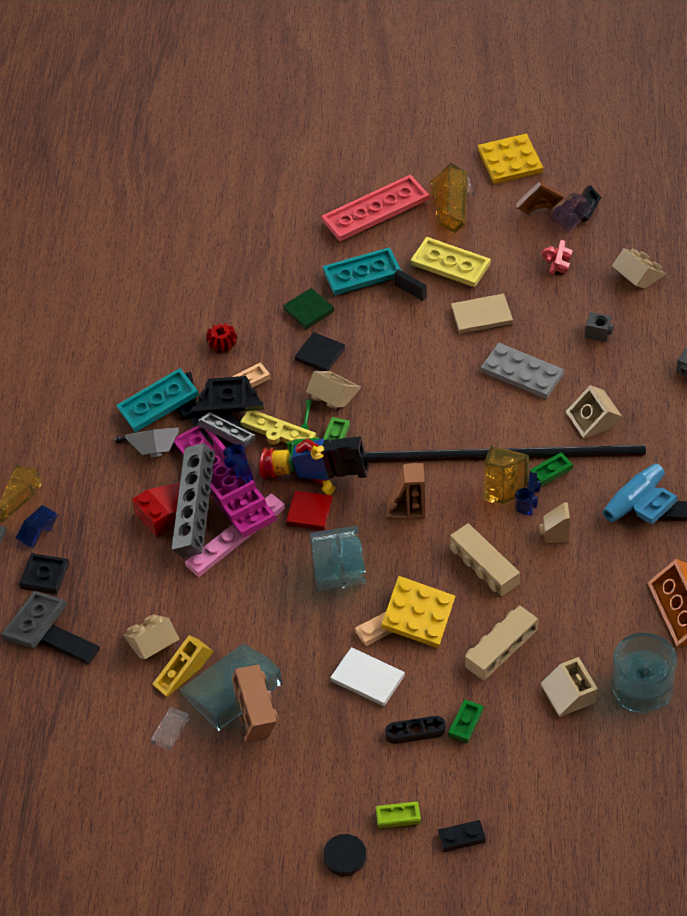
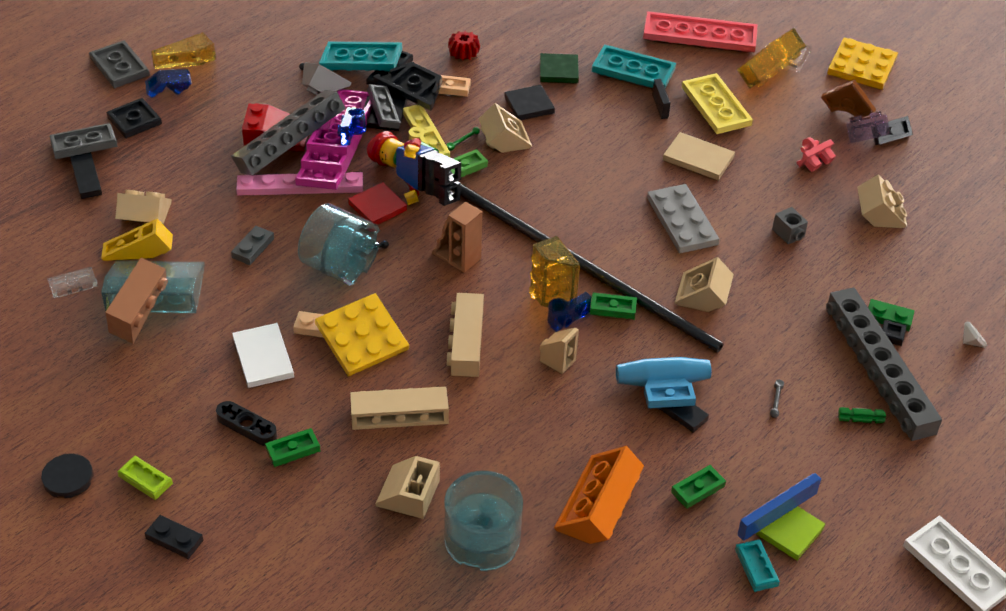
camera: 35 degrees right, 5 degrees down
(261, 605) = (252, 245): none -> dark grey plate

